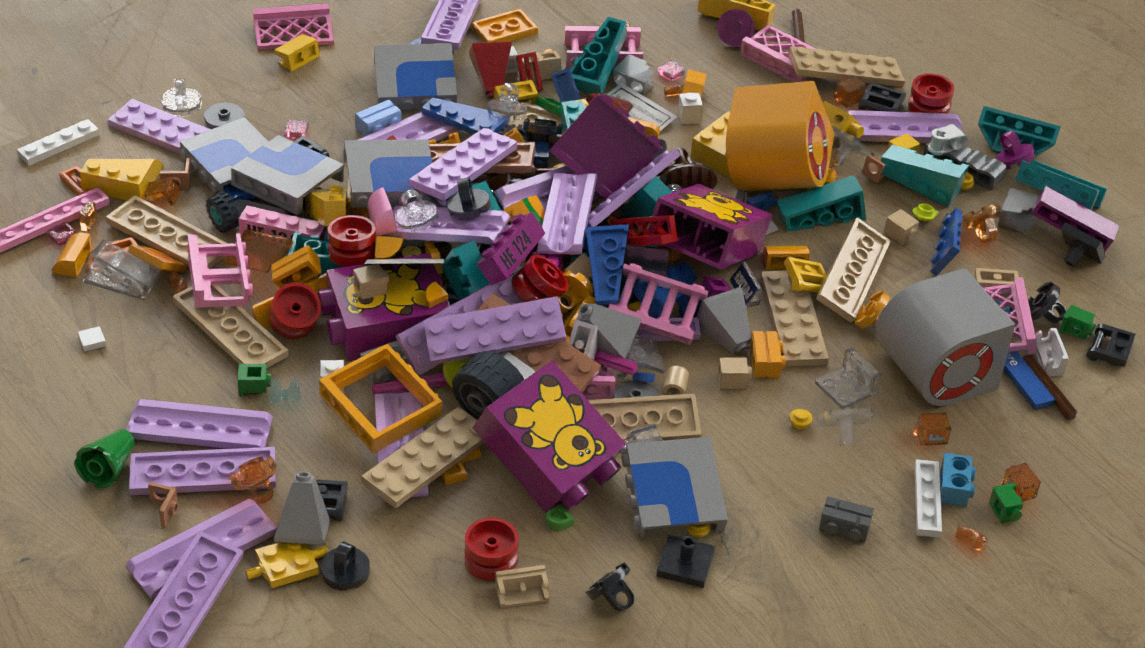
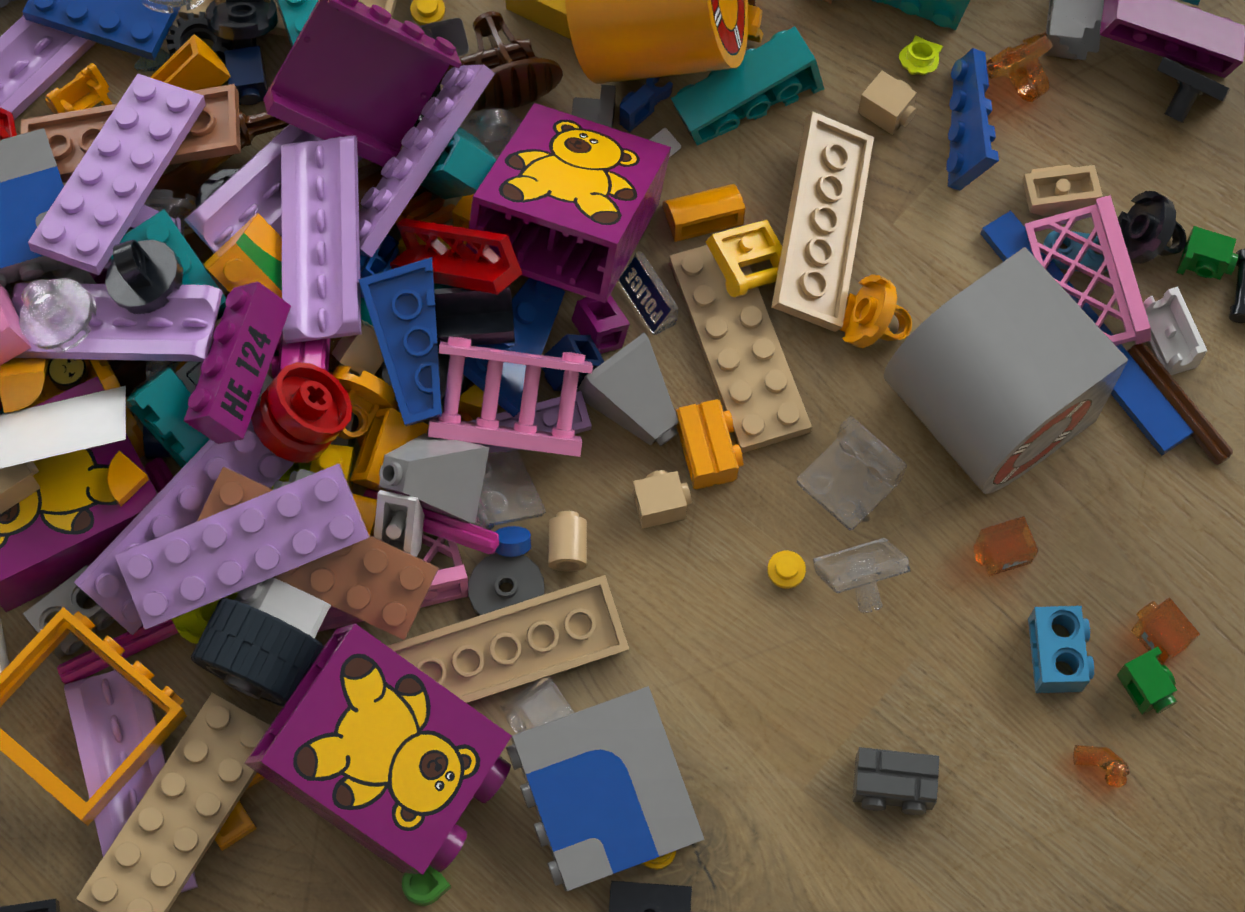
camera: 10 degrees left, 25 degrees up
(927, 498) = (1019, 699): white plate -> none

